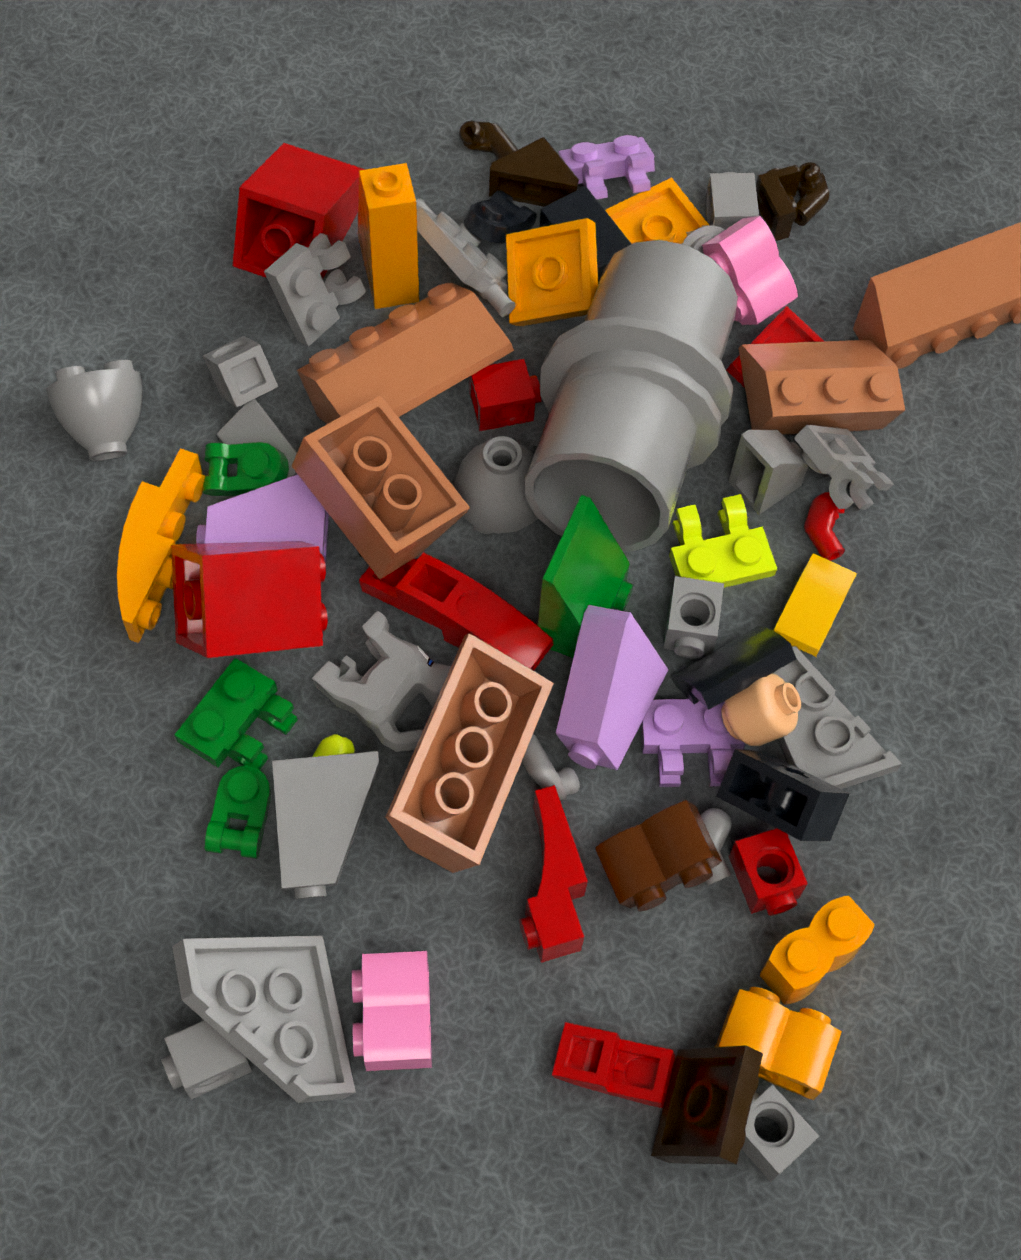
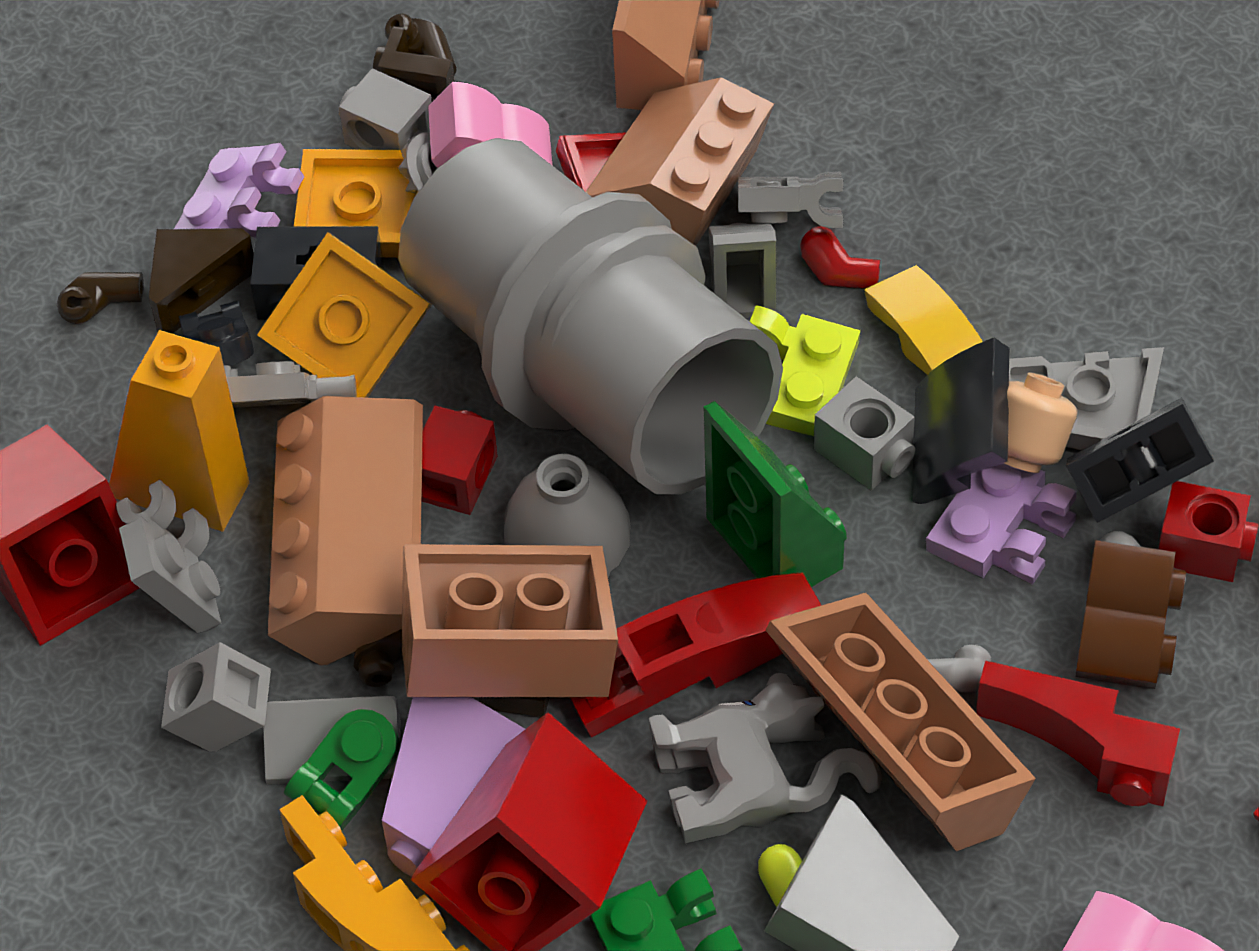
camera: 50 degrees left, 10 degrees down
(98, 406) = (144, 875): light grey piece -> none
(608, 688) = (904, 549): lavender slope -> none

